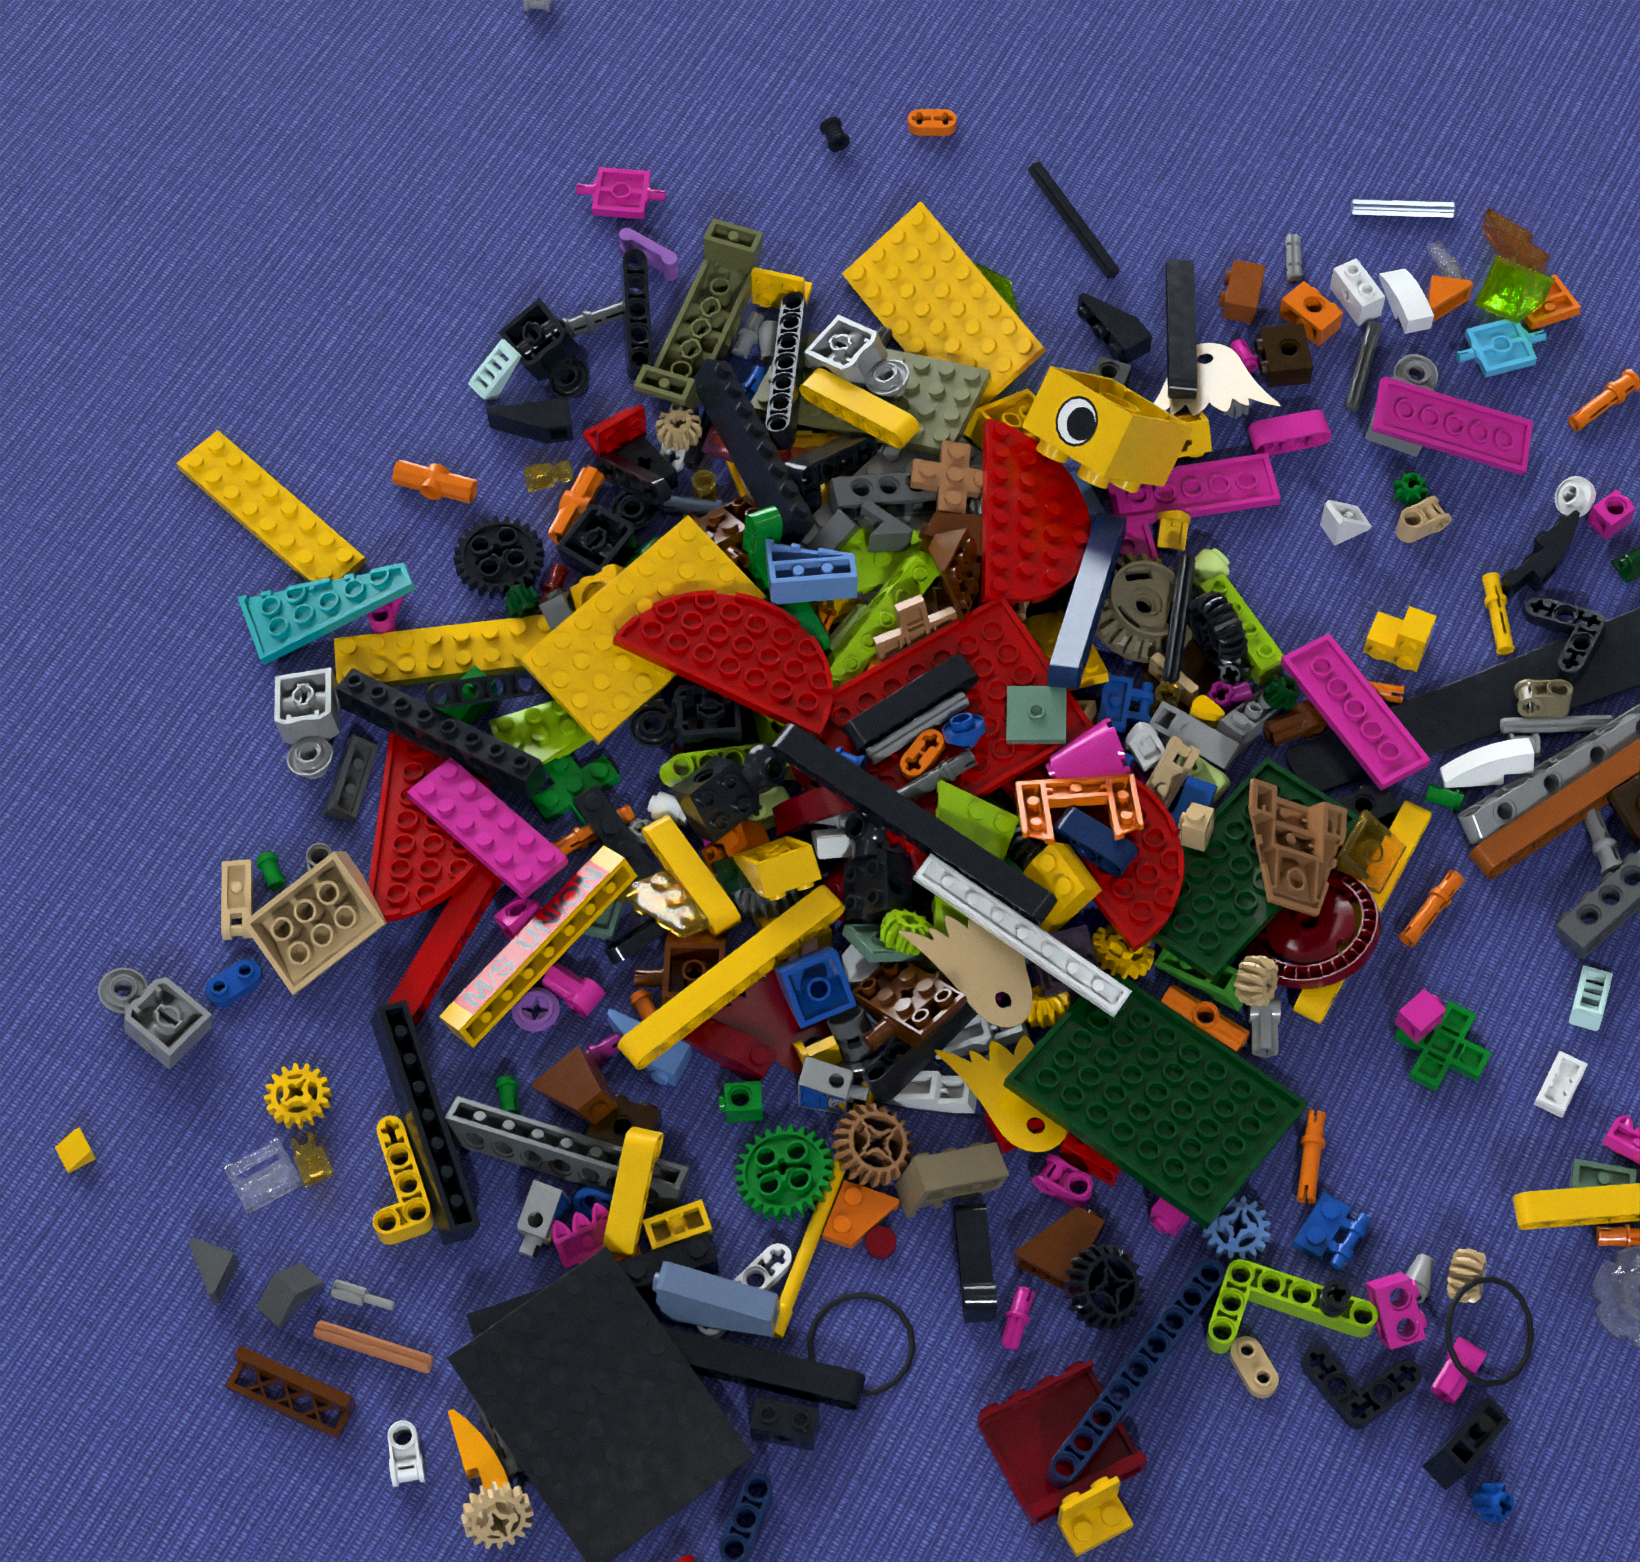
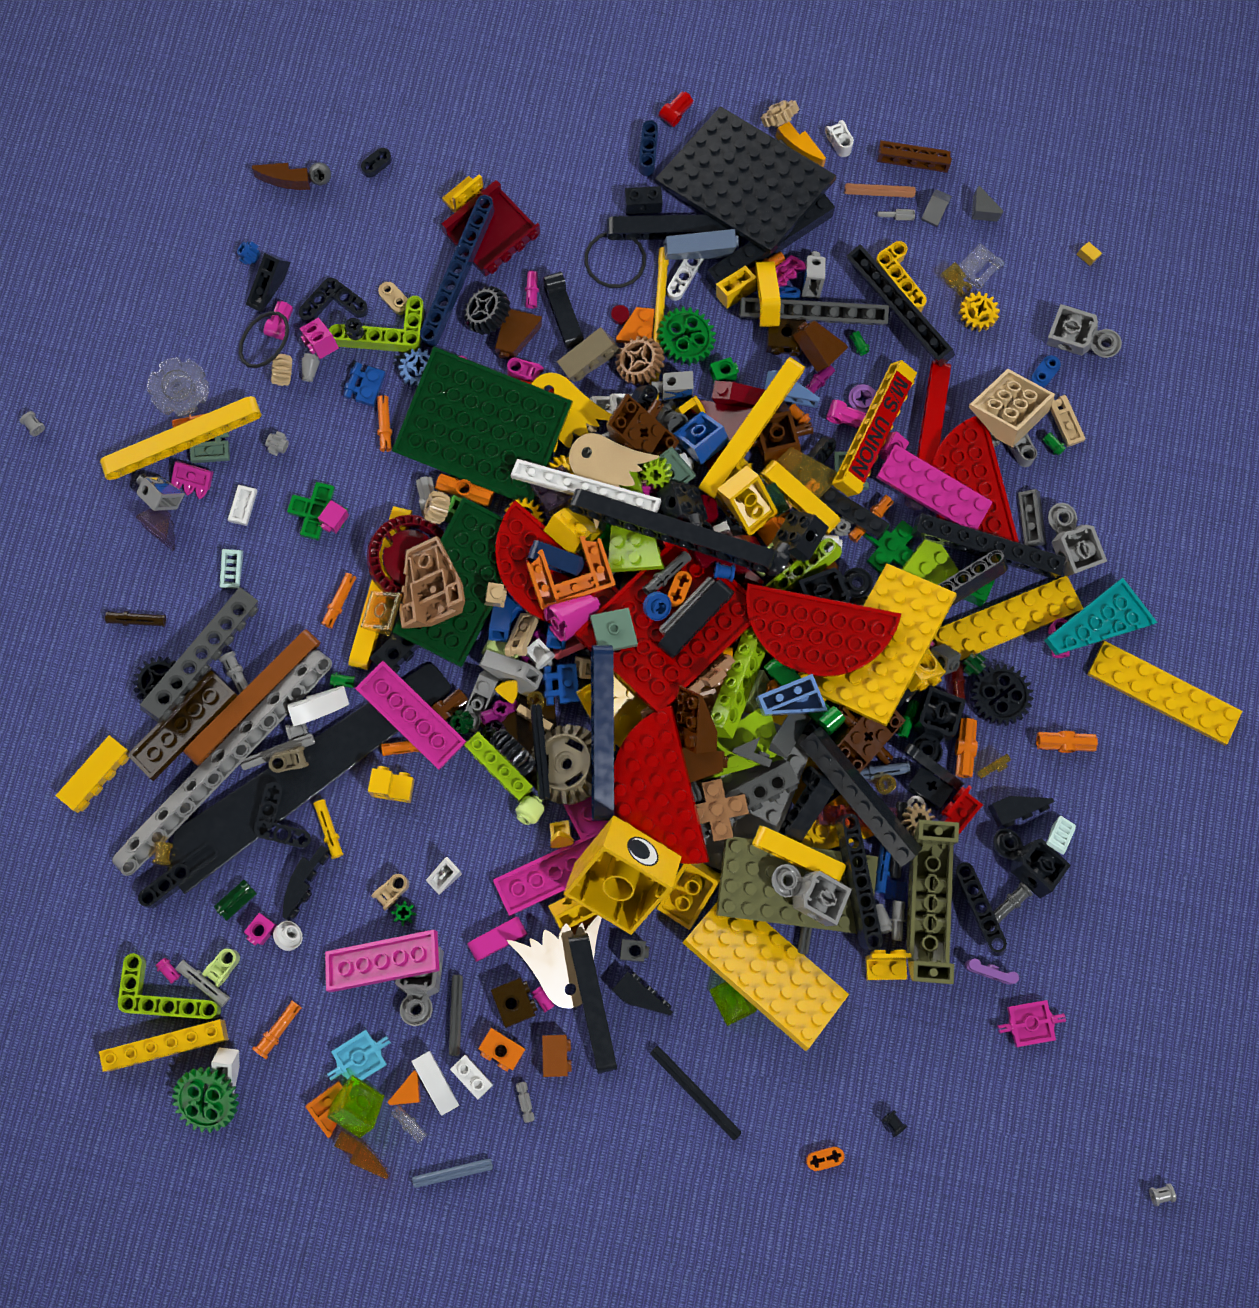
camera: 155 degrees right, 15 degrees up
(1491, 1162) = (277, 443): none -> light grey gear

